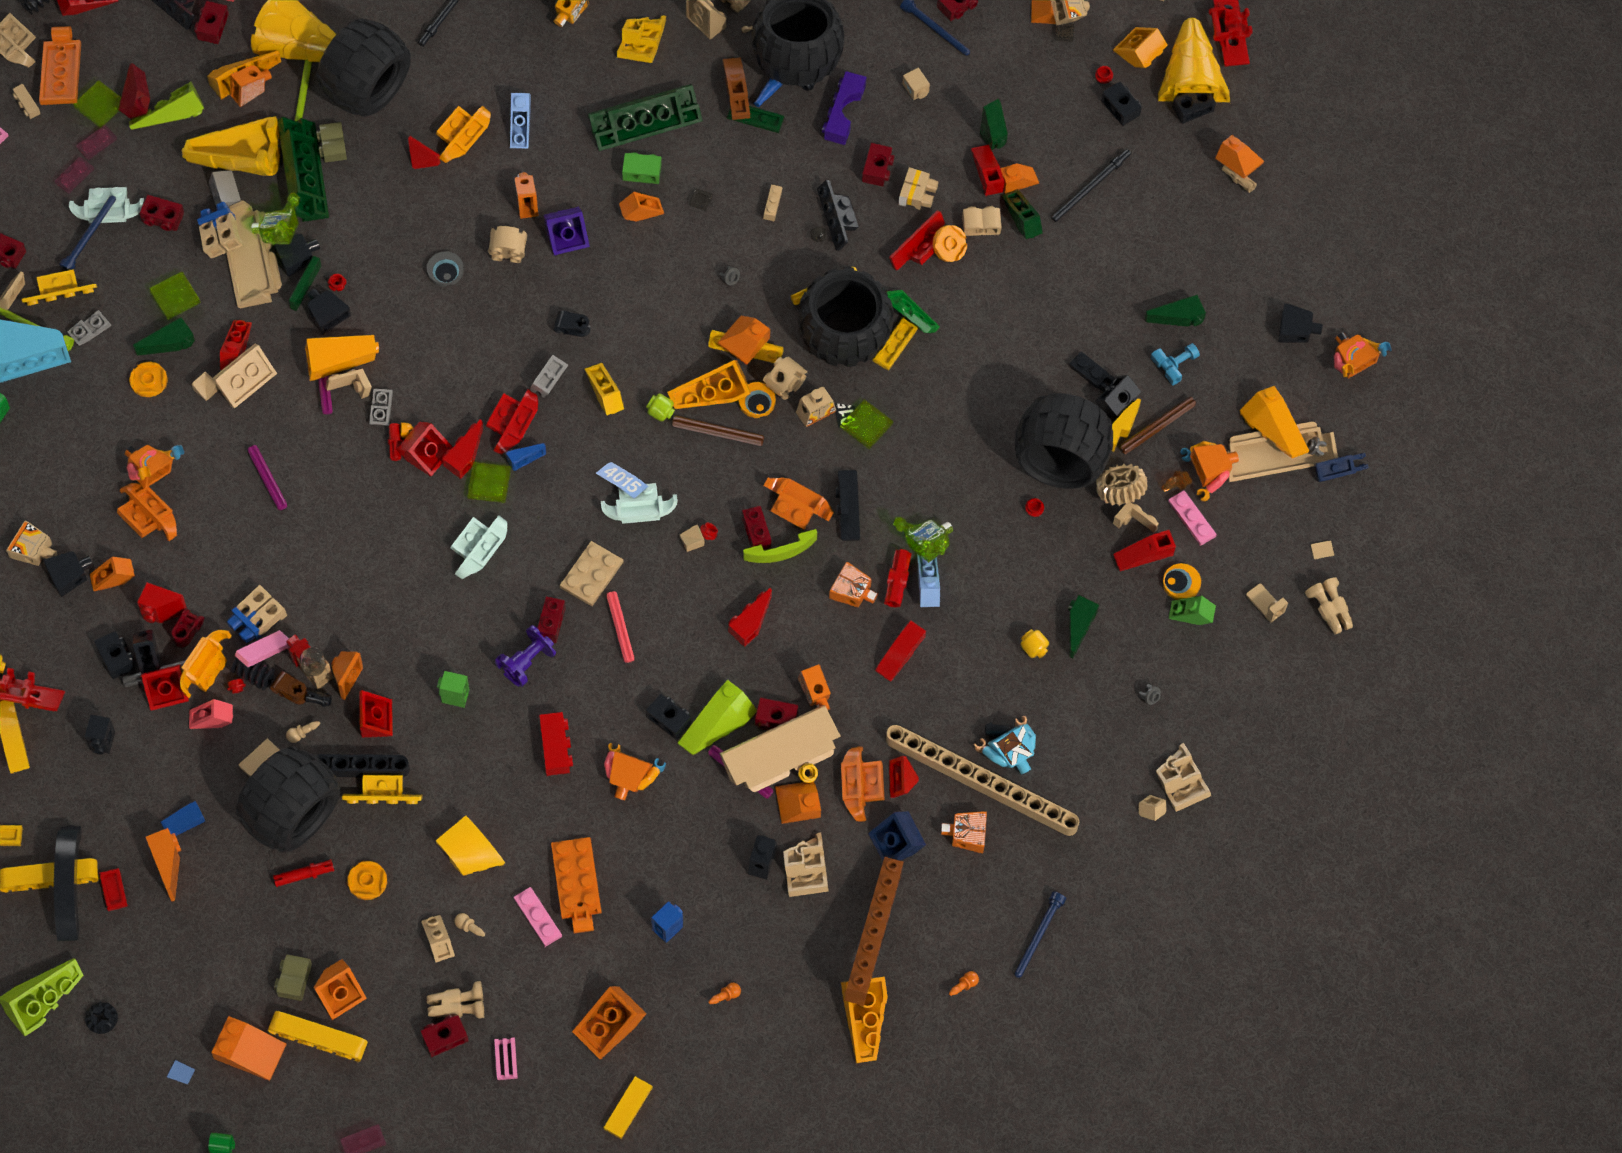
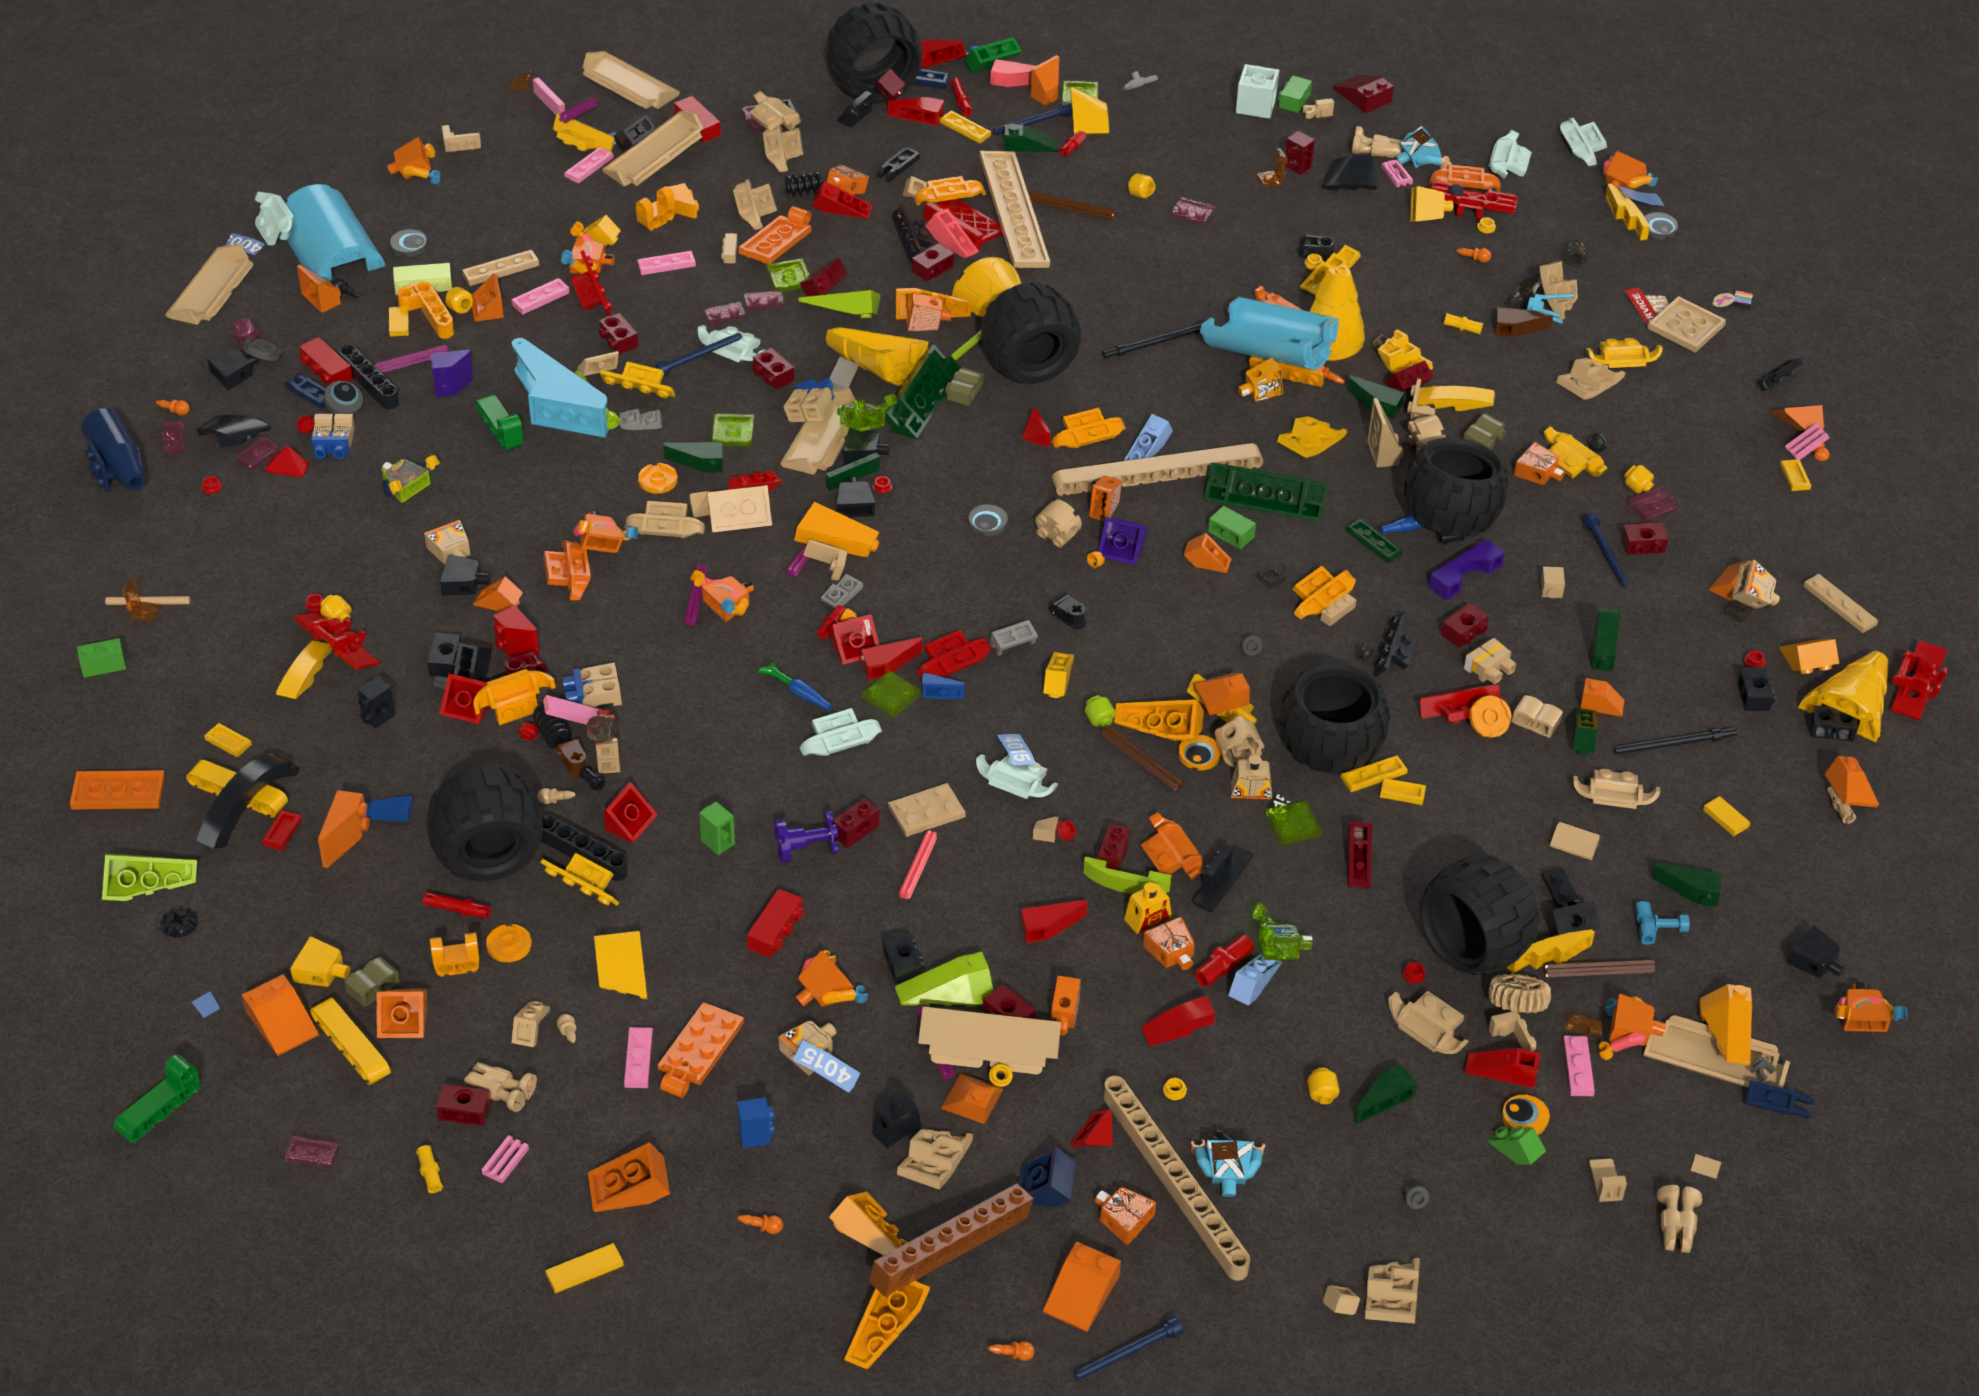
camera: 35 degrees right, 20 degrees down
(188, 420) = (665, 520): none -> tan plate
(211, 715) = (487, 741): coral slope -> none
(242, 987) = (318, 964): none -> yellow torso
(294, 466) = (724, 595): none -> torso
(342, 918) = (455, 958): none -> light orange piece
(346, 671) = (633, 768): orange slope -> none
(413, 519) = (796, 686): none -> blue piece
(459, 1101) = (429, 1169): none -> yellow pin
(545, 140) = (1156, 468): none -> tan beam
(556, 257) = (1095, 555): none -> light orange hinge
(654, 832) = (811, 1033): none -> tan torso
(681, 842) = (826, 1066): none -> light blue sticker
(736, 88) = (1369, 508): dark orange slope -> none
(750, 192) = (1321, 590): none -> light orange plate
(798, 952) = (863, 1221): none -> light orange wedge
(818, 565) = (1147, 908): none -> yellow torso
(860, 782) = (1047, 1113): orange plate -> none
(912, 311) = (1409, 751): green wing -> none
(926, 348) = (1403, 791): none -> yellow tile
(933, 426) = (1359, 854): none -> dark red slope
(933, 702) = (1174, 1083): none -> yellow plate
(978, 907) = (1082, 1286): none -> orange slope
(988, 170) = (1574, 680): red slope -> none
(1072, 544) = (1429, 1022): none -> tan plate
(1075, 322) = (1575, 840): none -> tan slope
(1077, 257) = (1616, 789): none -> tan plate
(1166, 234) = (1726, 816): none -> yellow tile

